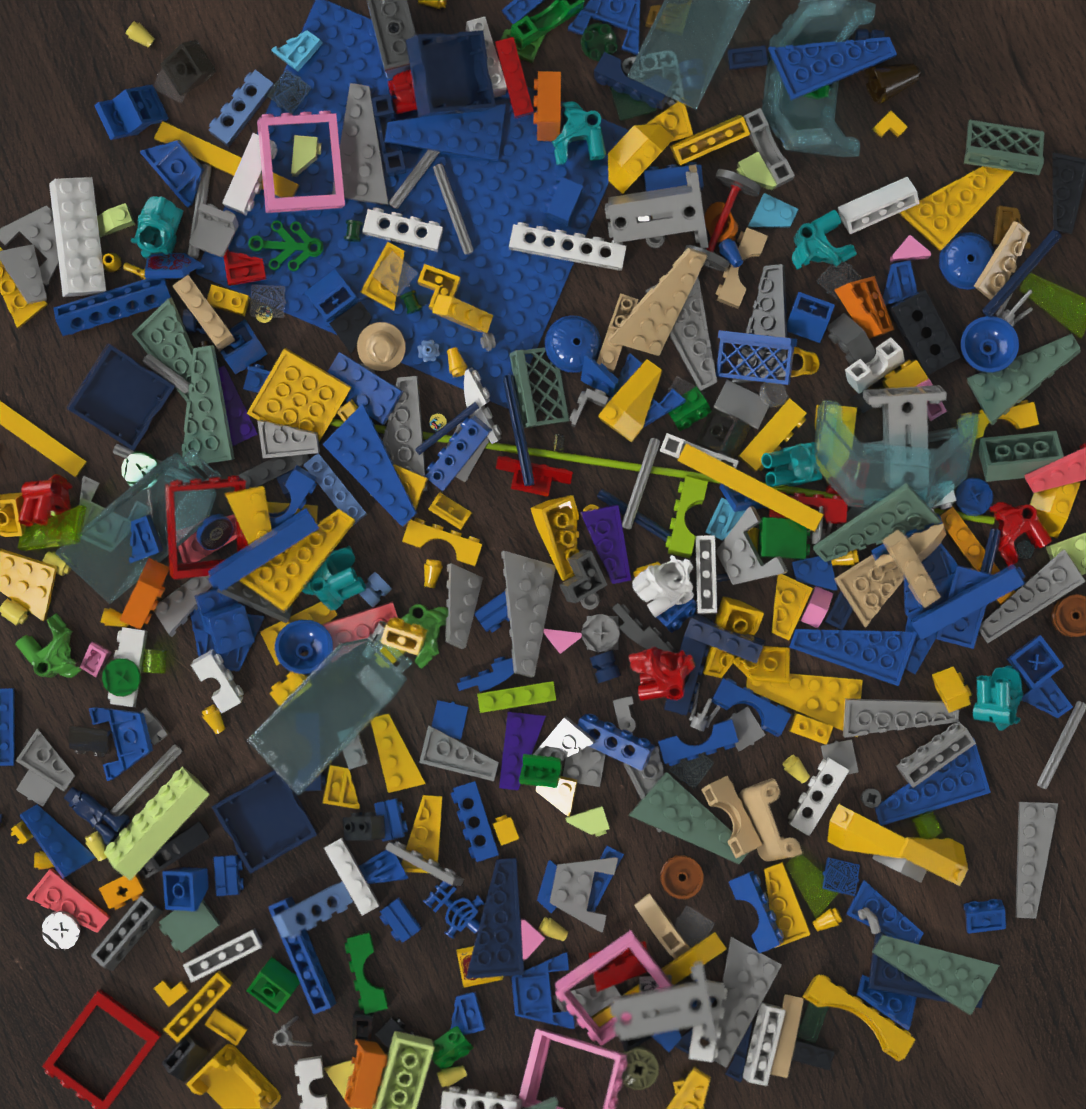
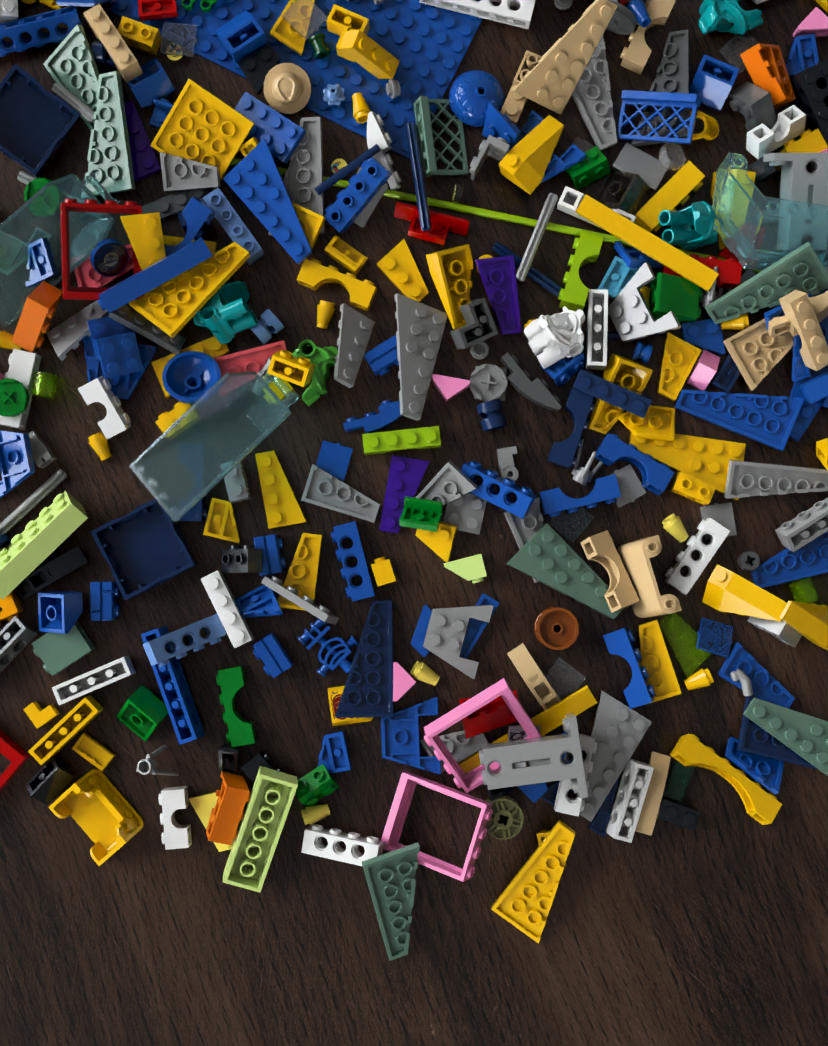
camera: 10 degrees right, 0 degrees up
(509, 526) = (403, 272): none -> yellow wing
(661, 673) = (553, 424): red helmet -> none
(753, 593) = (642, 352): none -> blue wheel

